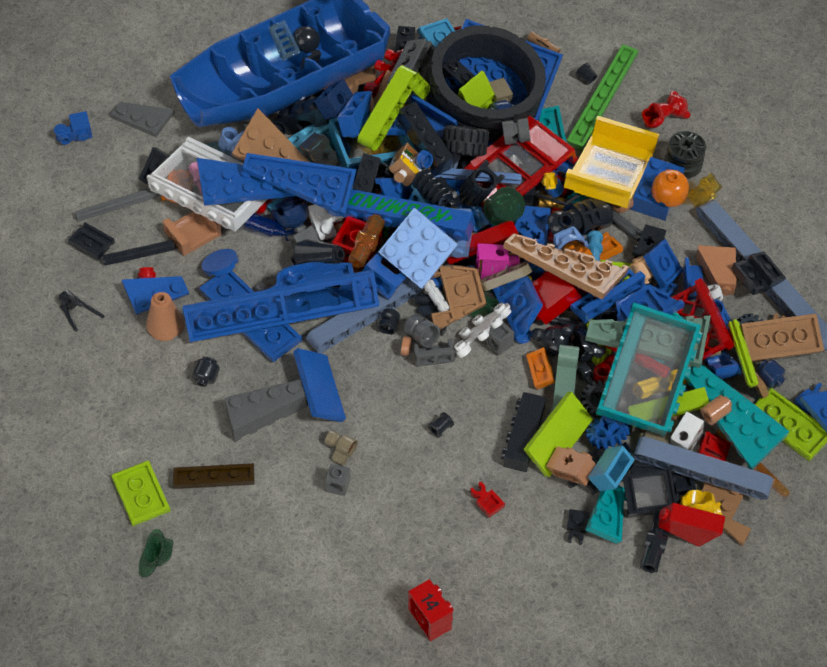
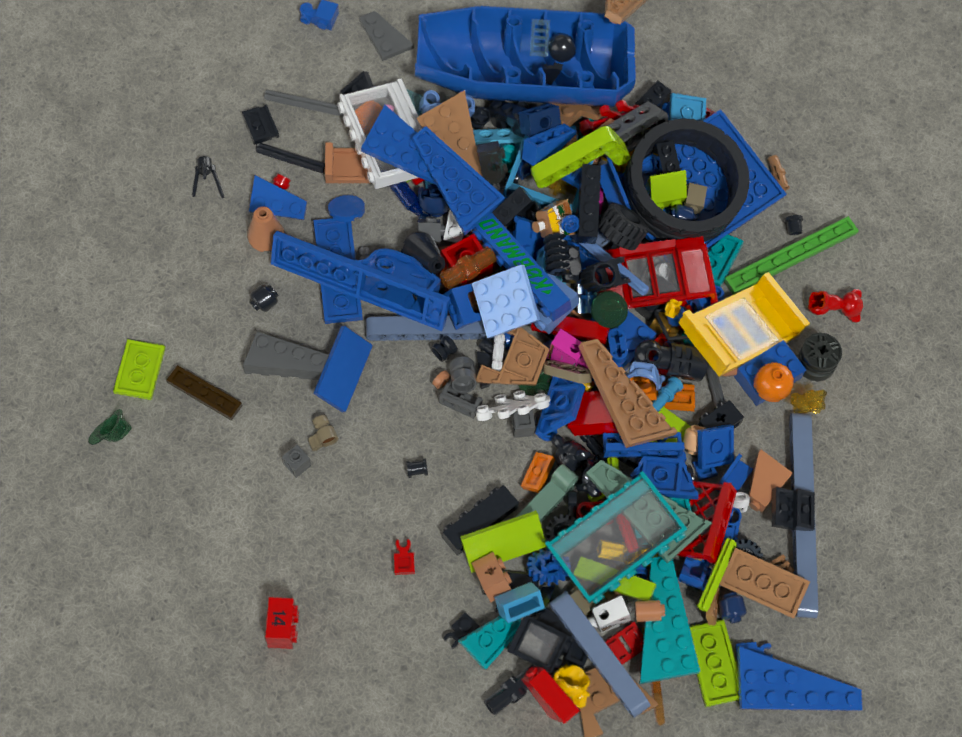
camera: 30 degrees right, 10 degrees up
(516, 131) = (673, 244): dark grey wheel -> none

